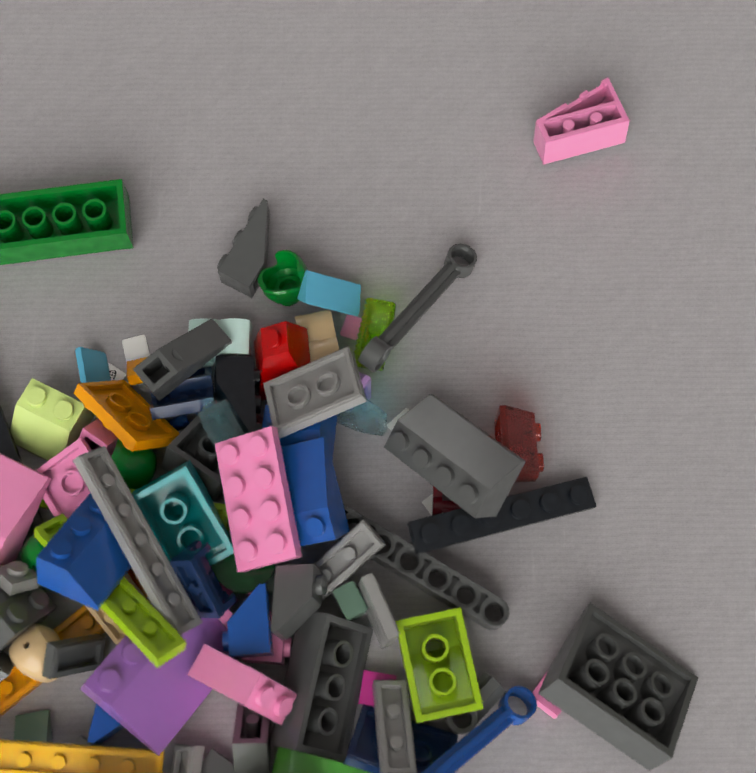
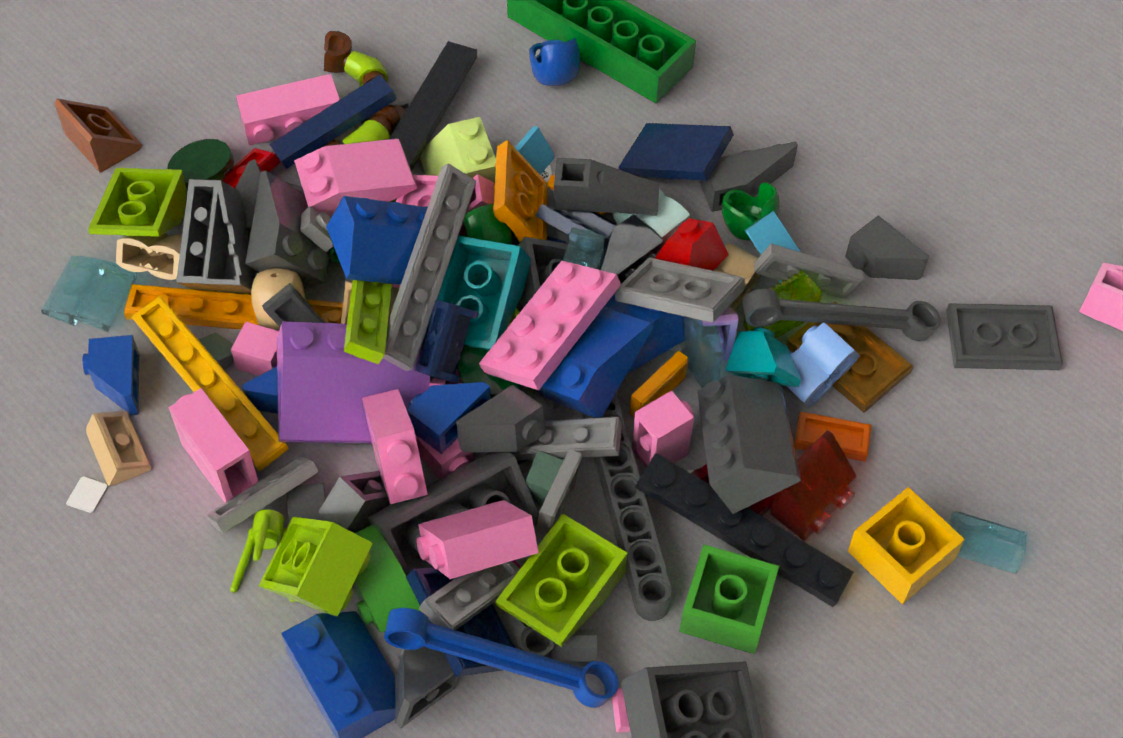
camera: 45 degrees right, 15 degrees down
(35, 283) = (556, 63): none -> blue helmet
(65, 700) = (255, 349): none -> bright pink brick
(191, 277) = (677, 151): none -> dark blue tile
(352, 463) = (660, 383): none -> light orange tile
(362, 694) = (477, 539): none -> bright pink brick
(372, 288) = (827, 275): none -> light grey tile
(393, 229) = (885, 252): none -> dark grey slope
(393, 497) = (663, 429): none -> bright pink brick
(403, 385) = (762, 357): none -> teal slope
(434, 355) = (820, 362): none -> light blue brick
(448, 328) = (875, 370): none -> pearl gold tile
(484, 393) = (850, 435): none -> orange tile
(515, 223) = (1003, 336): none -> dark grey tile
(540, 570) = (728, 599): none -> bright green brick
(602, 431) = (905, 545): none -> yellow brick
(634, 378) = (989, 542): none -> clear light blue slope

